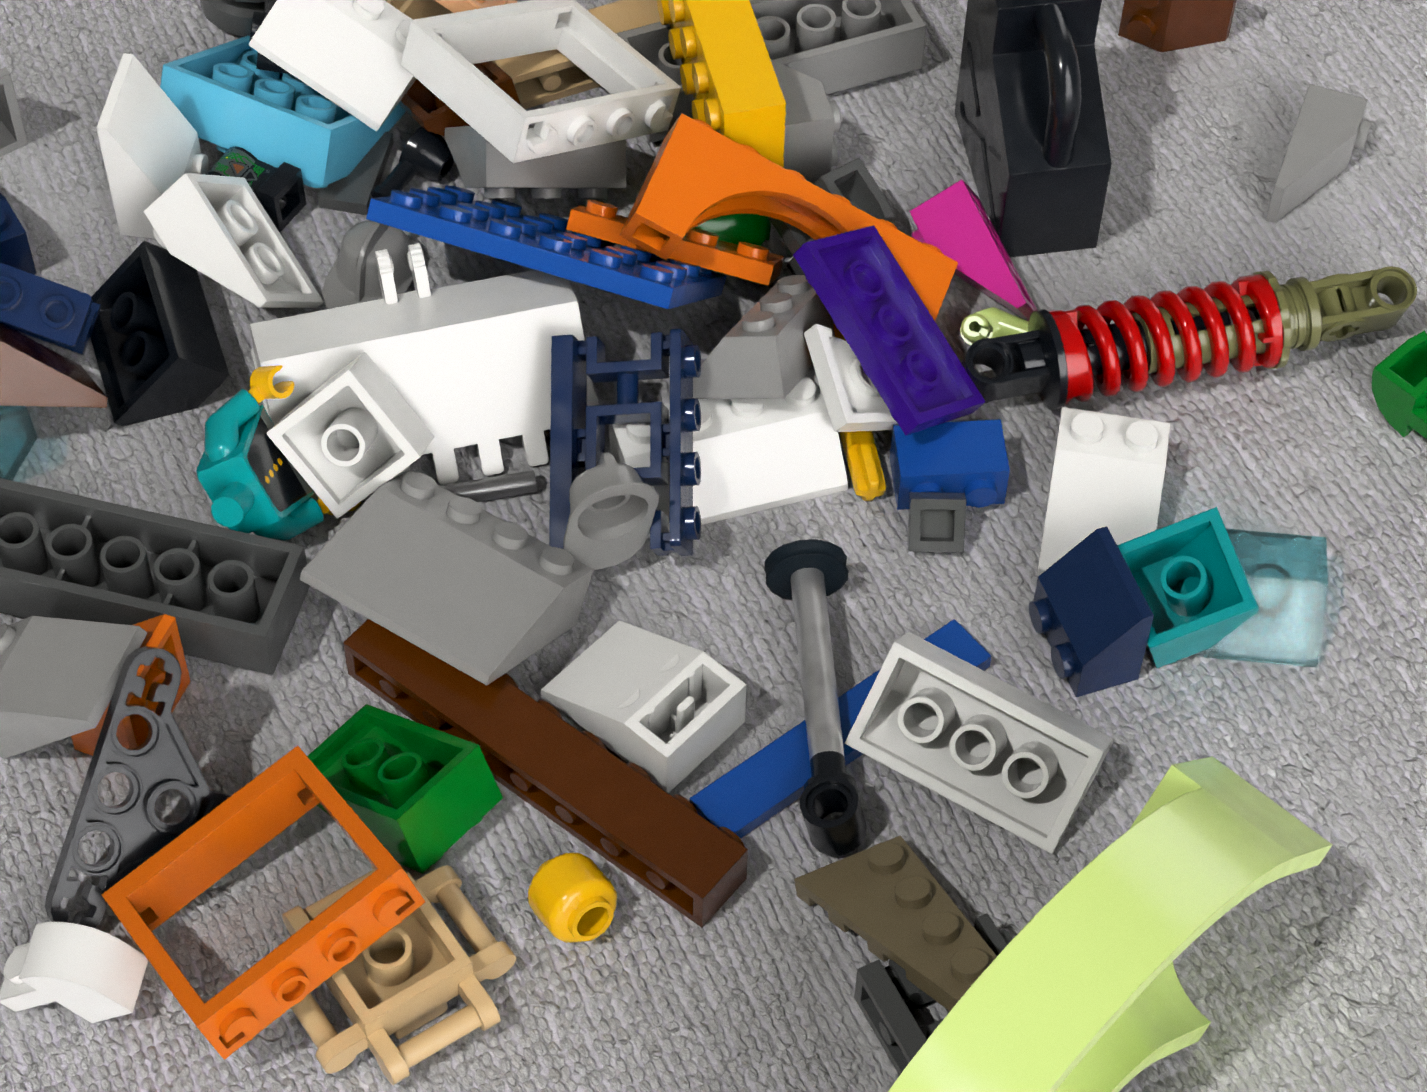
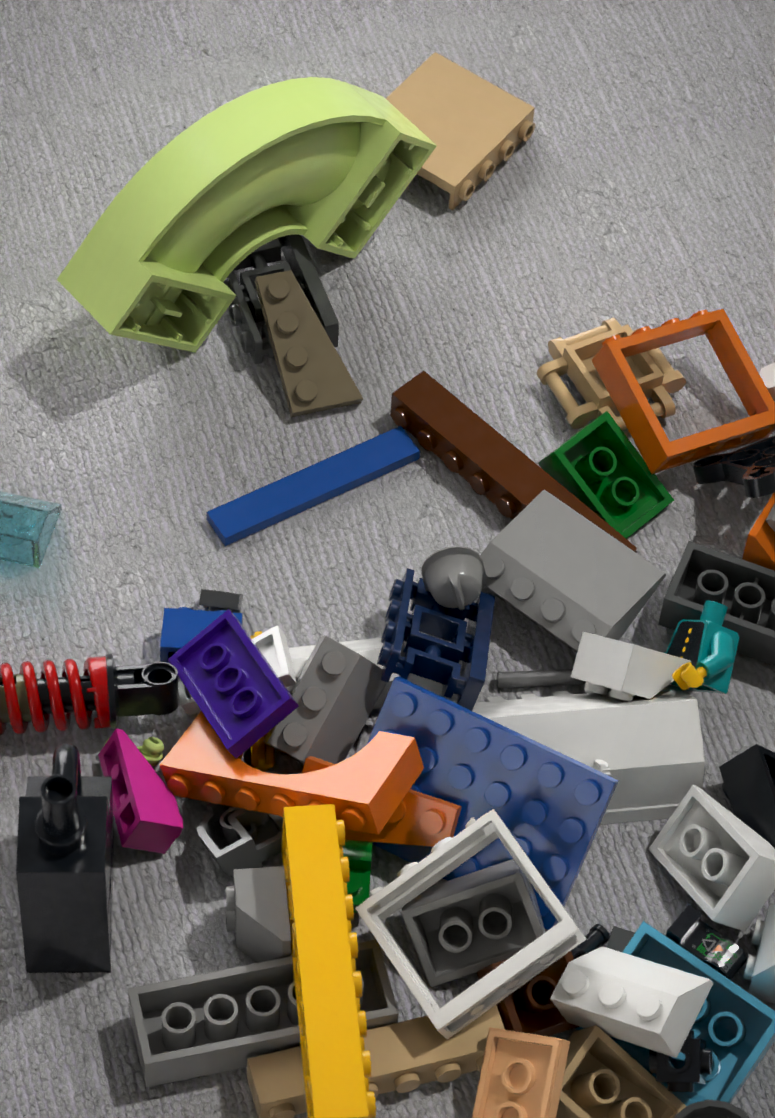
camera: 175 degrees left, 0 degrees up
(355, 271) = (611, 871): light grey piece -> none
(572, 898) = (500, 398): yellow head -> none
(651, 700) = (438, 498): white slope -> none
(807, 574) = (320, 564): piece -> none
(978, 741) = (228, 451): white slope -> none
(1092, 616) = (138, 510): dark blue slope -> none
(1102, 476) = (96, 607): white slope -> none
(1190, 585) = (76, 507): teal slope -> none

